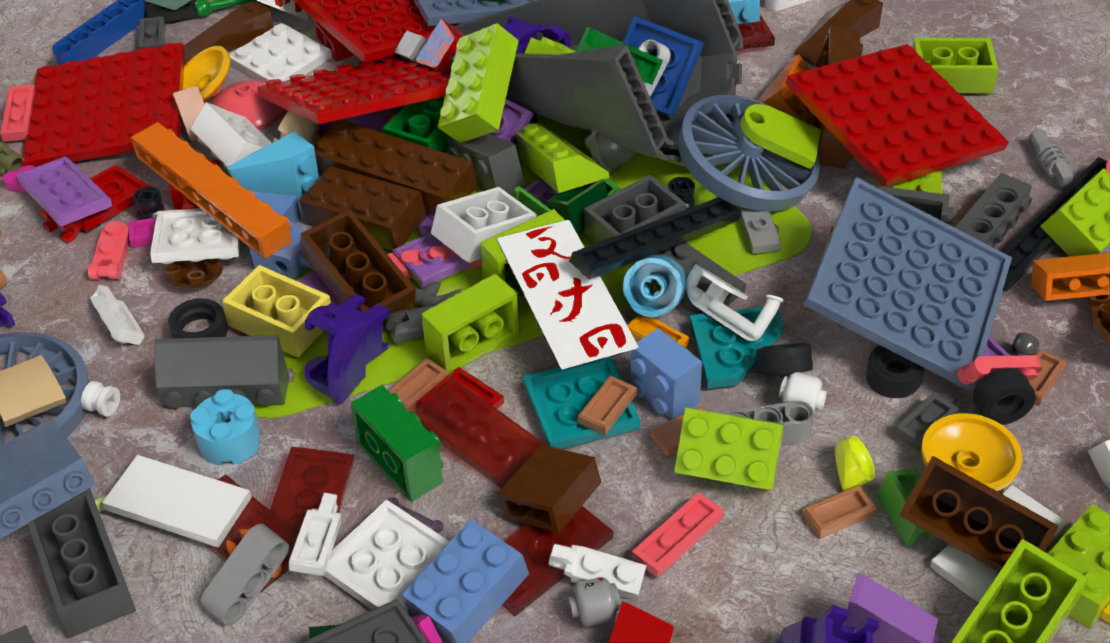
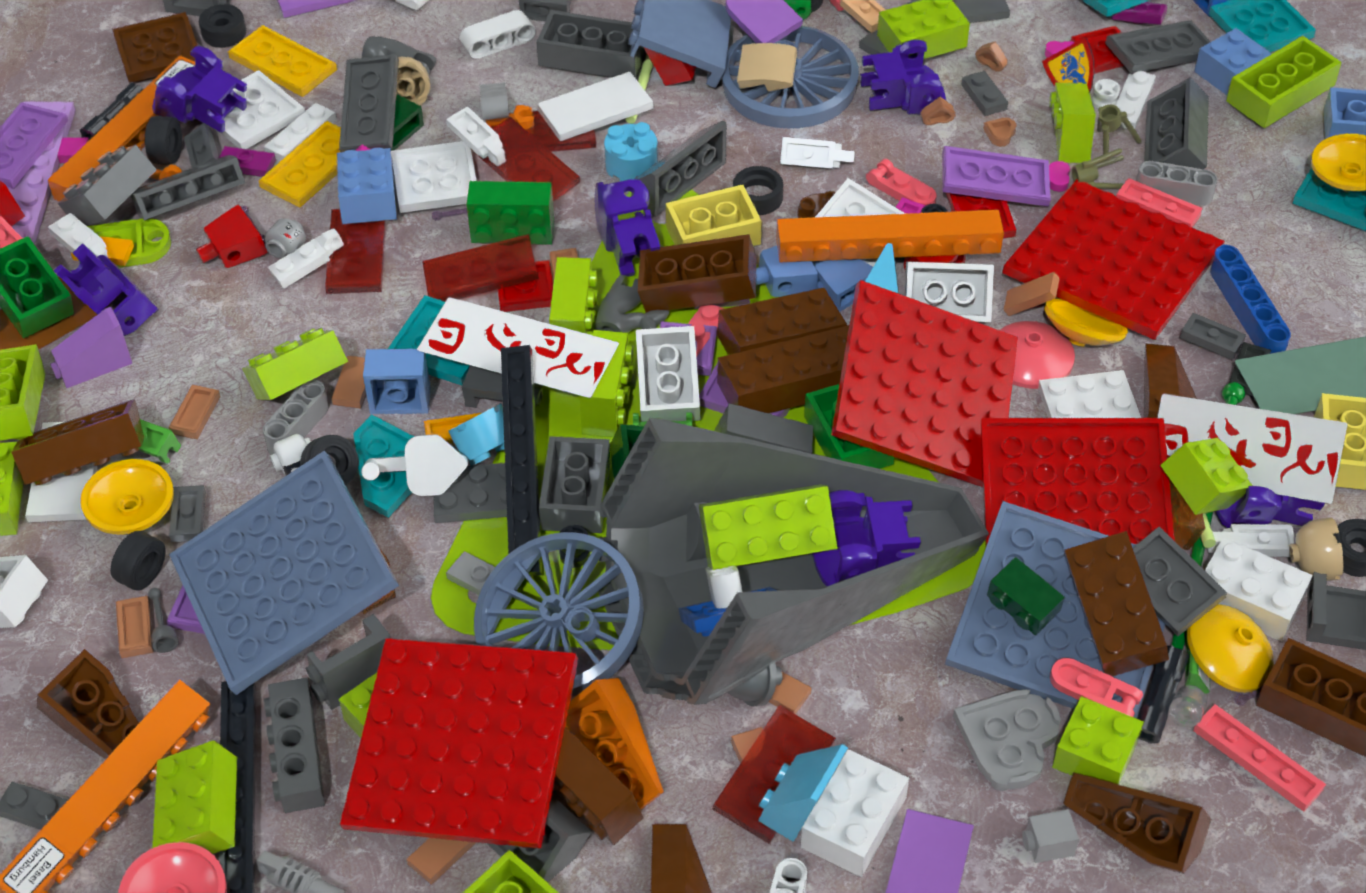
camera: 130 degrees right, 5 degrees up
(100, 398) = (734, 113): white wheel -> none
(410, 46) = (962, 471): light grey brick -> none
(440, 48) = (918, 462): red torso -> none
(478, 83) = (810, 422): lime brick -> none
(550, 488) = (385, 265): reddish brown brick -> none
(607, 405) = (412, 332): nougat tile -> none
(646, 64) = (734, 534): green panel -> none
(677, 534) = (281, 312): coral plate -> none
(781, 134) = (543, 627): lime tile -> none
(853, 463) = (211, 442): neon yellow piece -> none
(985, 365) = (154, 570): coral plate -> none

